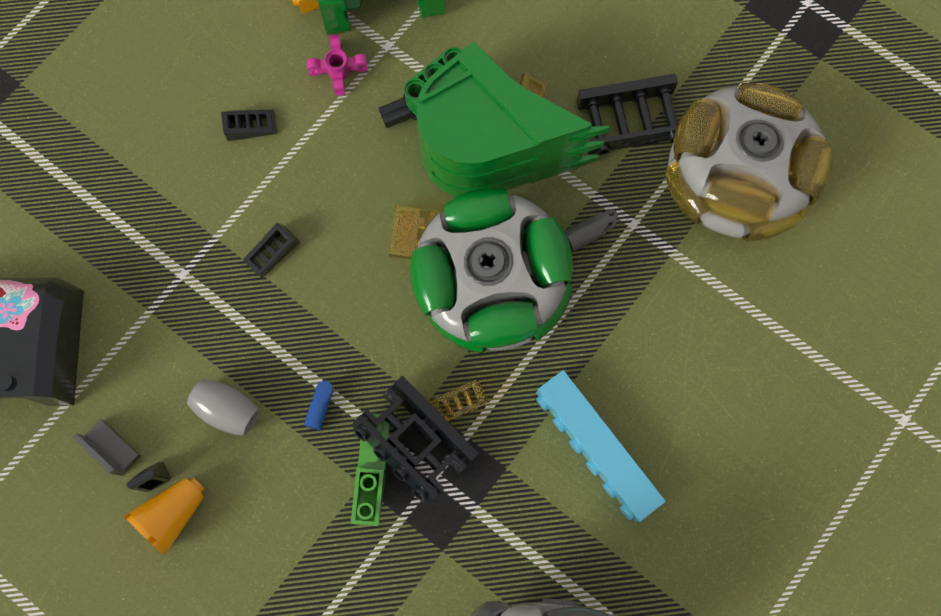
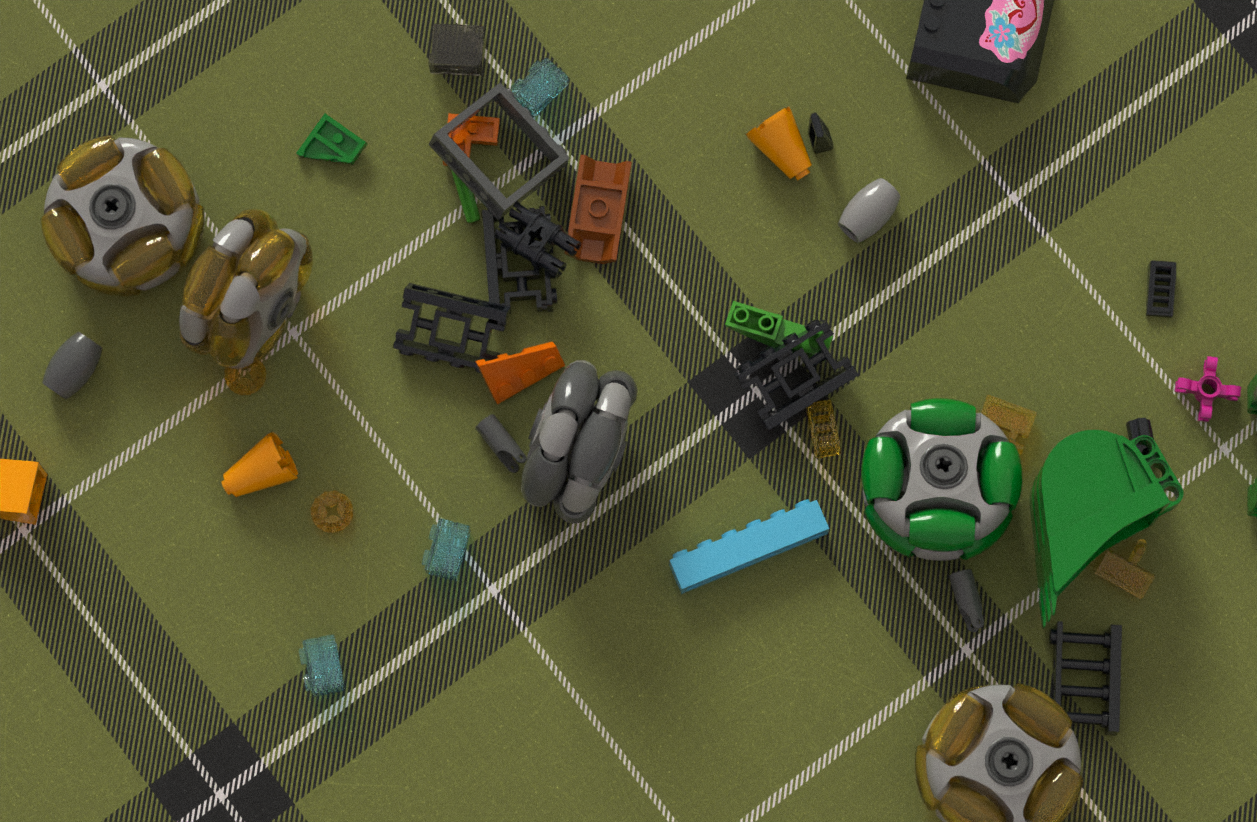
camera: 105 degrees right, 0 degrees up
(108, 448) = (856, 102): dark grey panel -> none
(277, 256) = (1029, 298): black slope -> none
(319, 405) = (850, 298): blue bar -> none

